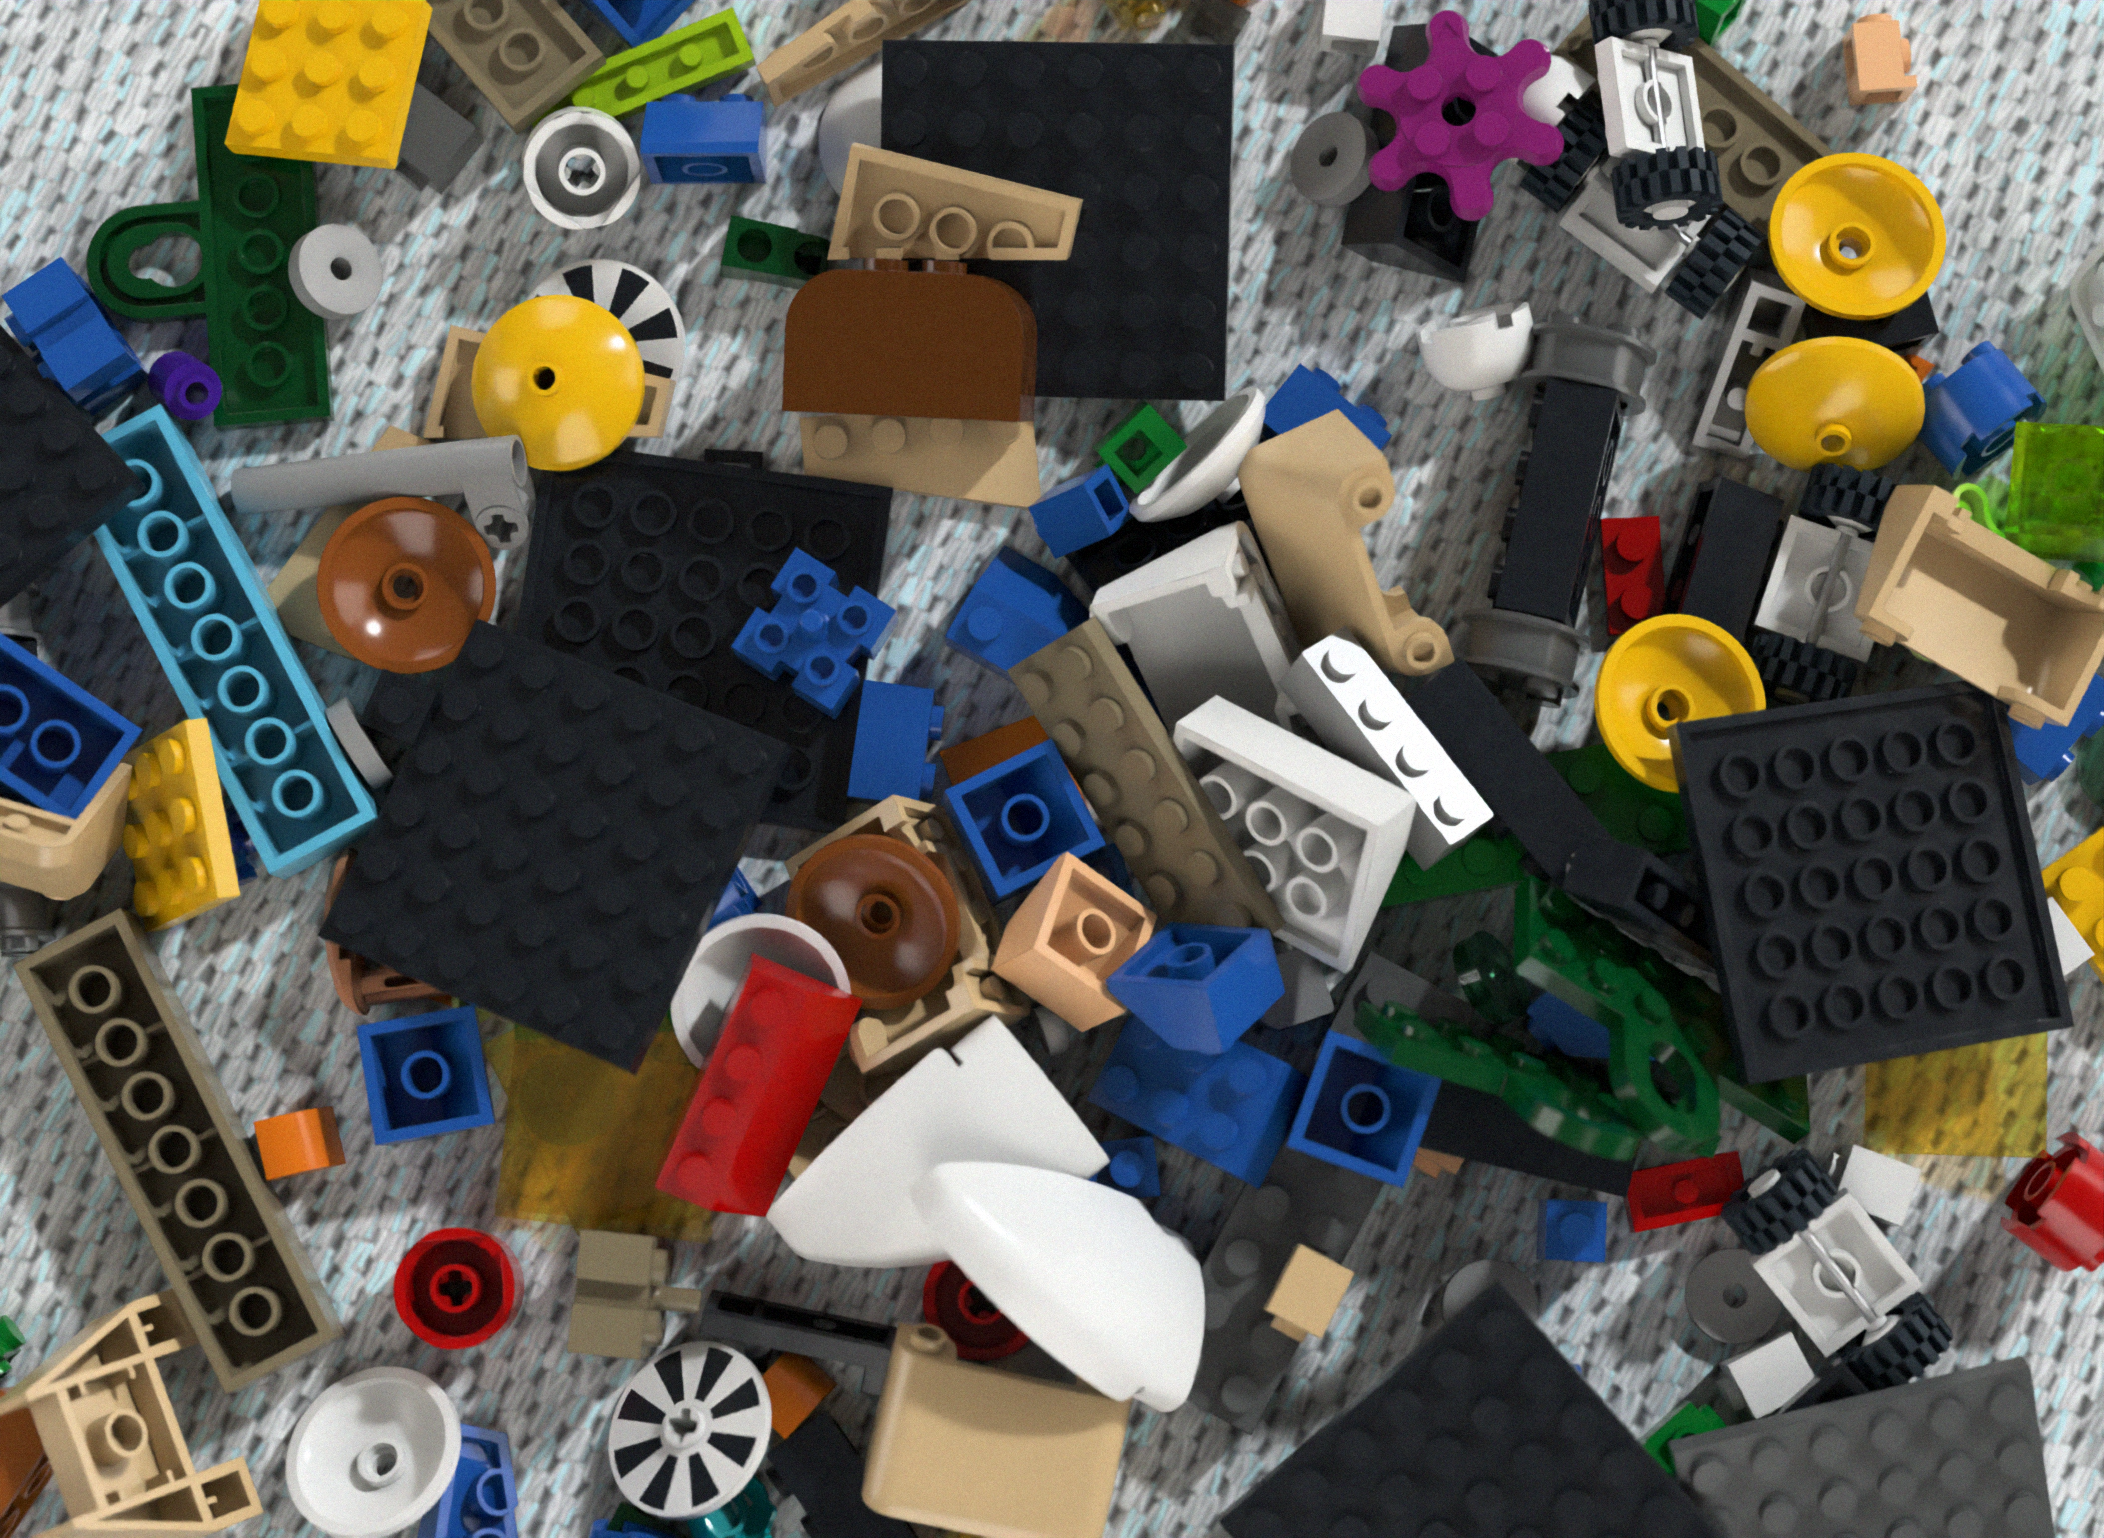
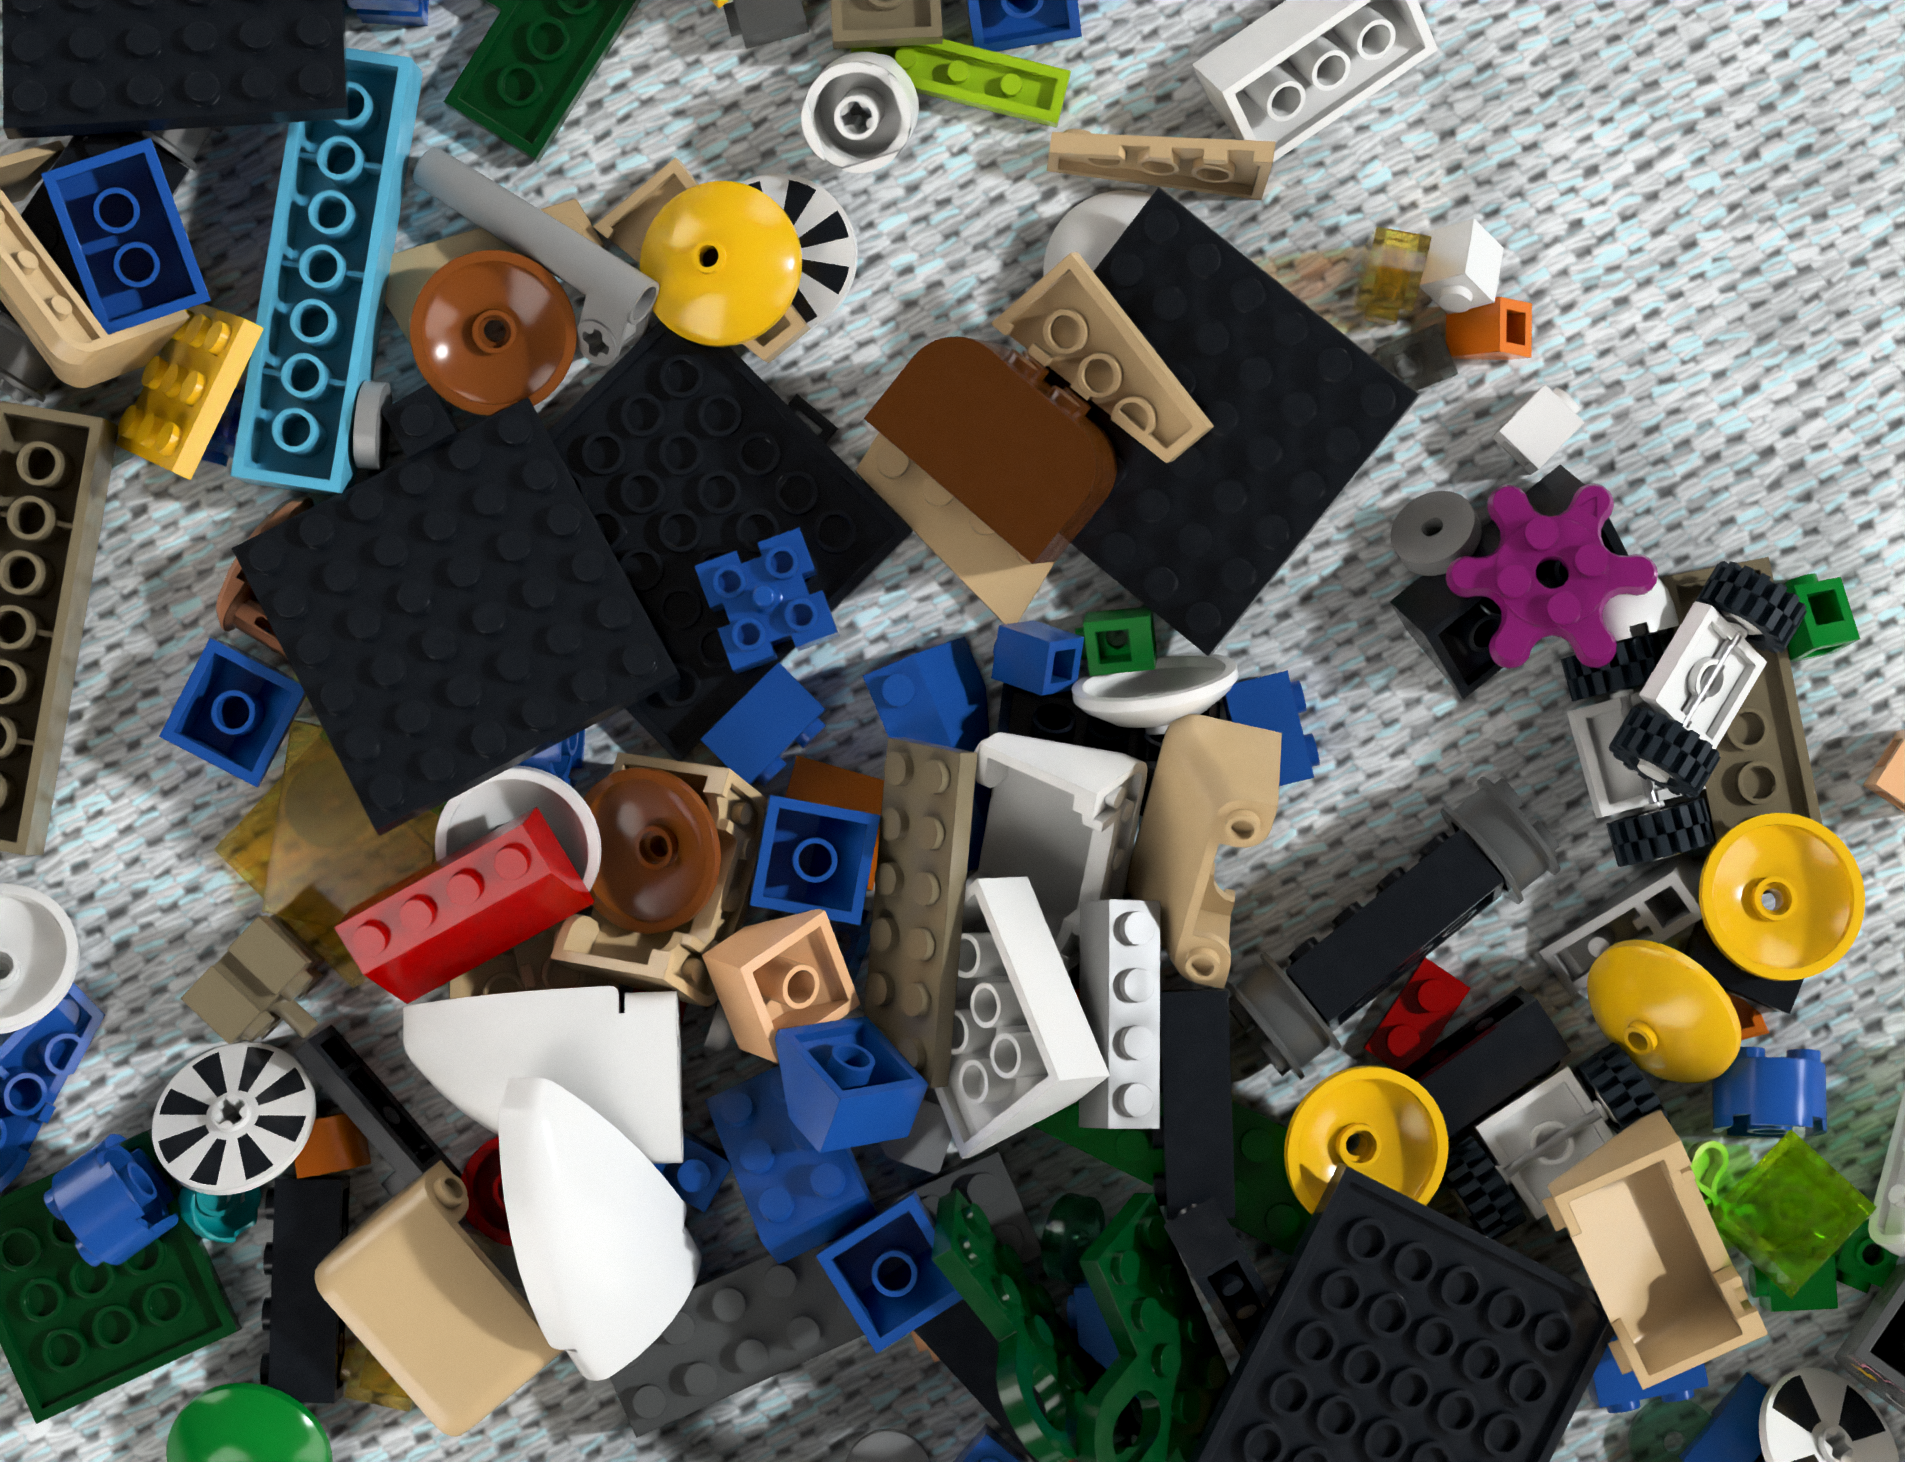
camera: 45 degrees right, 5 degrees up
(184, 385) = (443, 54): dark purple brick -> none
(299, 1143) = (110, 688): orange brick -> none
(318, 287) = (598, 48): light grey piece -> none
(433, 1263) = (115, 893): red brick -> none
(705, 140) = (972, 158): blue slope -> none
(772, 253) = (958, 286): dark green leg -> none
(1307, 1294) = (752, 1371): tan brick -> none
(1479, 349) = (1433, 760): white cylinder -> none

